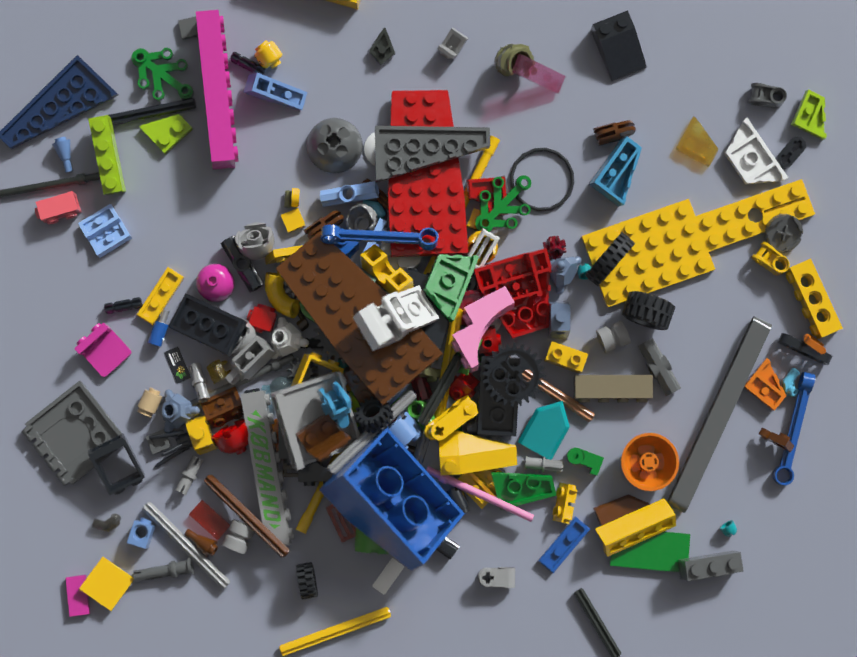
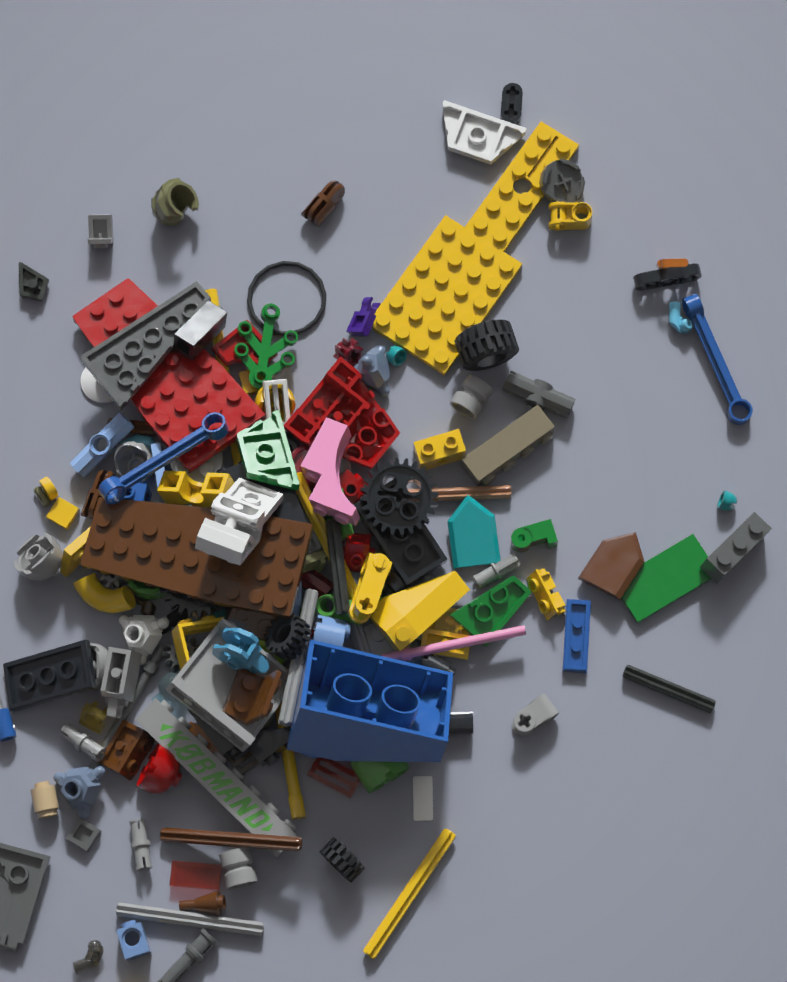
camera: 30 degrees left, 10 degrees down
(107, 447) = (33, 874): black window -> none
(177, 364) = (47, 743): black sticker -> none
(183, 444) = (110, 815): black plant -> none
(201, 435) = (125, 793): yellow torso -> none
(215, 282) = (26, 631): dark pink cylinder -> none
(248, 274) = (54, 598): black piece -> none
(262, 318) = (102, 630): red brick -> none
(332, 155) = (57, 420): dark grey piece -> none
(467, 163) = (200, 330): none -> brick
(538, 73) = (208, 198): clear pink tile -> none
(559, 320) = (406, 417): sand blue torso -> none
(580, 232) = (363, 320): none -> dark purple plate
(609, 259) = (410, 320): black tyre -> none
(617, 171) = (355, 239): dark azure wedge -> none
(619, 45) = (267, 119): black slope -> none
(636, 527) = (635, 563): yellow panel -> none
(663, 461) = (600, 476): orange piece -> none
(697, 143) = (414, 158): clear yellow wing -> none
(719, 414) = (632, 399): dark grey beam -> none
(765, 95) = (443, 67): dark grey piece -> none
(766, 386) = (656, 338): orange wing -> none
(779, 440) = (711, 378): reddish brown plate -> none
(811, 115) = (503, 56): lime wing -> none
(823, 304) = (632, 212): yellow brick -> none

